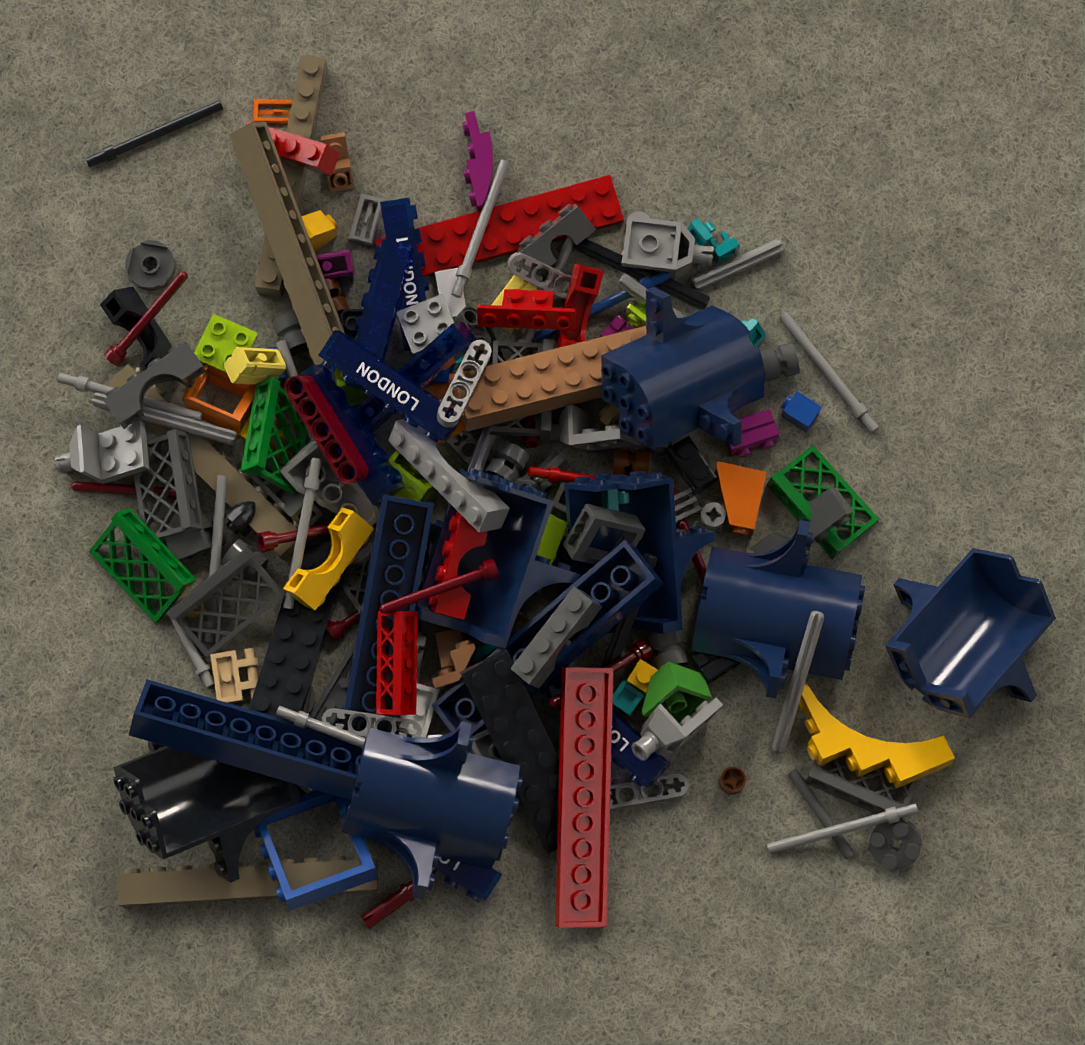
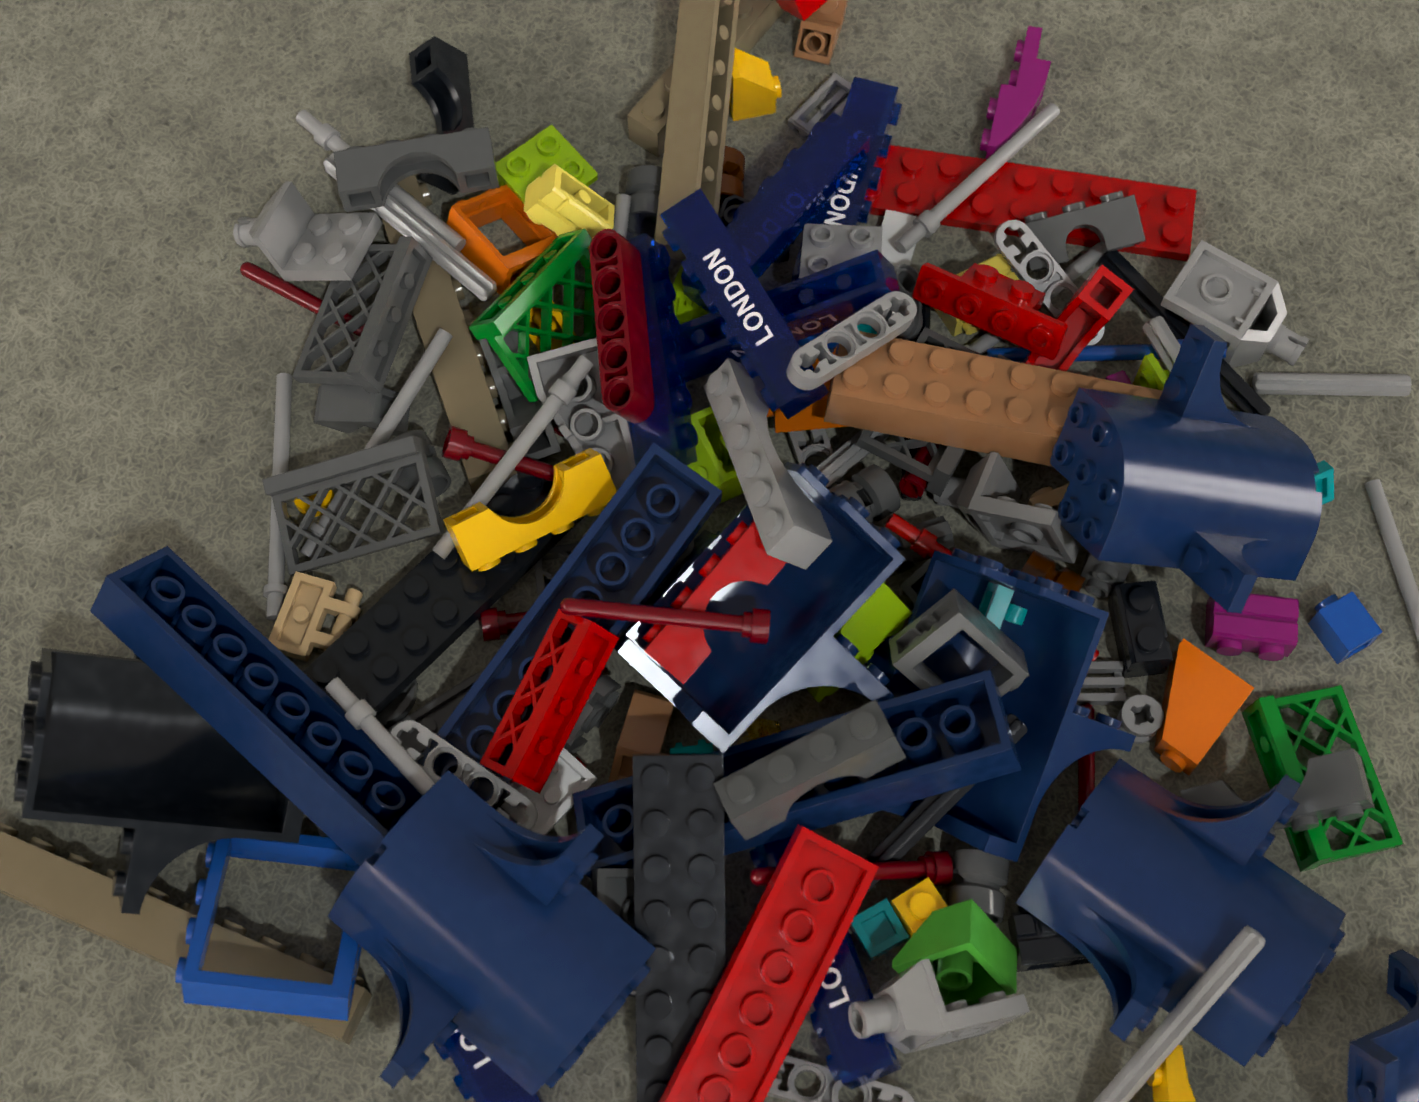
camera: 25 degrees right, 10 degrees down
(117, 353) = (401, 125): dark red piece -> none
(143, 254) = (511, 59): dark grey plate -> none
(152, 552) = (292, 391): green fence -> none
(240, 517) = (442, 401): black plate -> none
(336, 264) = (755, 137): magenta brick -> none
(389, 905) = (351, 1074): dark red pin -> none
(462, 659) = (656, 737): medium nougat slope -> none
(701, 232) = (1299, 315): teal tile -> none
(726, 249) = (1324, 354): teal tile -> none
(774, 368) = (1357, 545): dark grey wheel -> none

